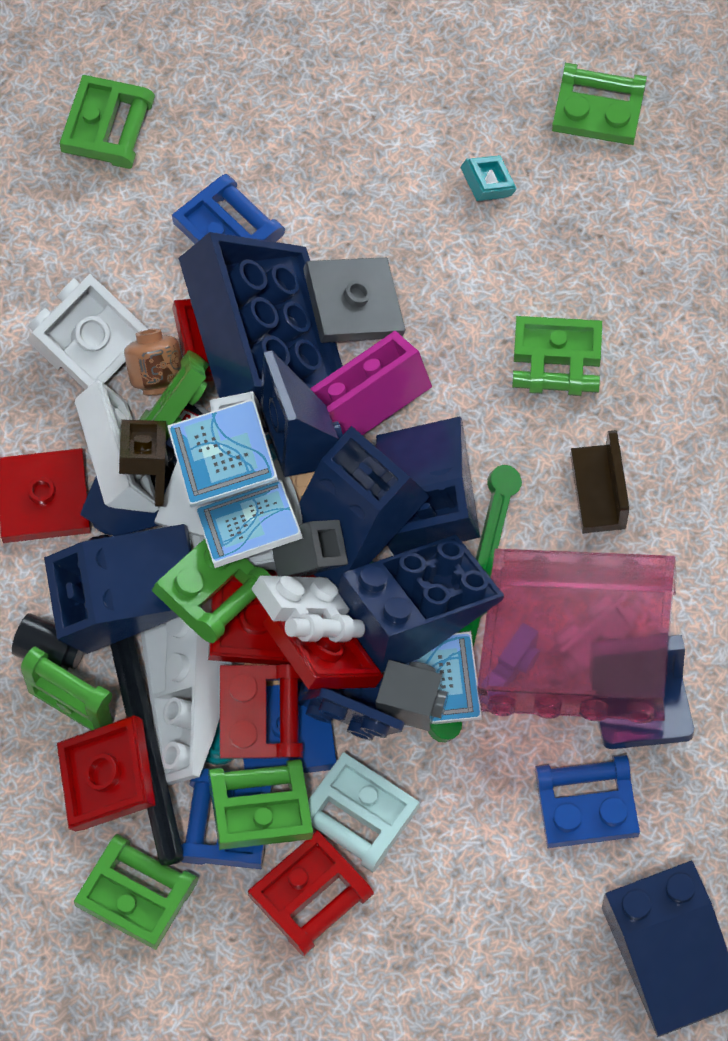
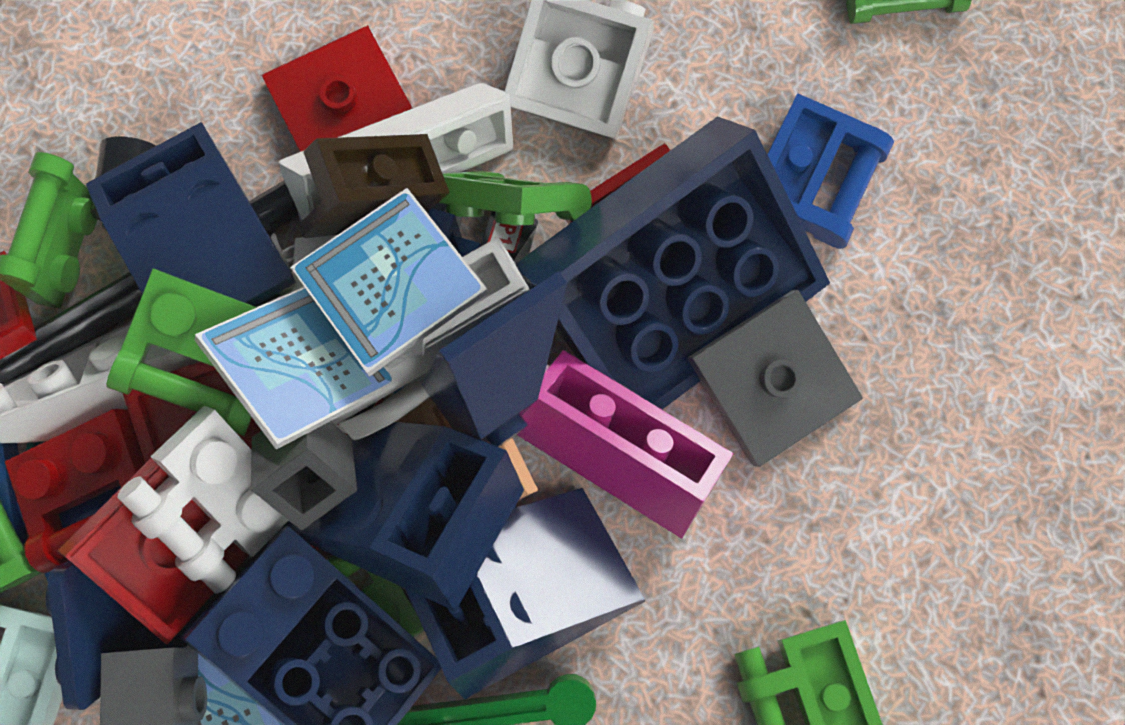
camera: 70 degrees right, 10 degrees up
(152, 361) = (566, 149): nougat head -> none
(488, 178) = (1056, 493): teal tile -> none

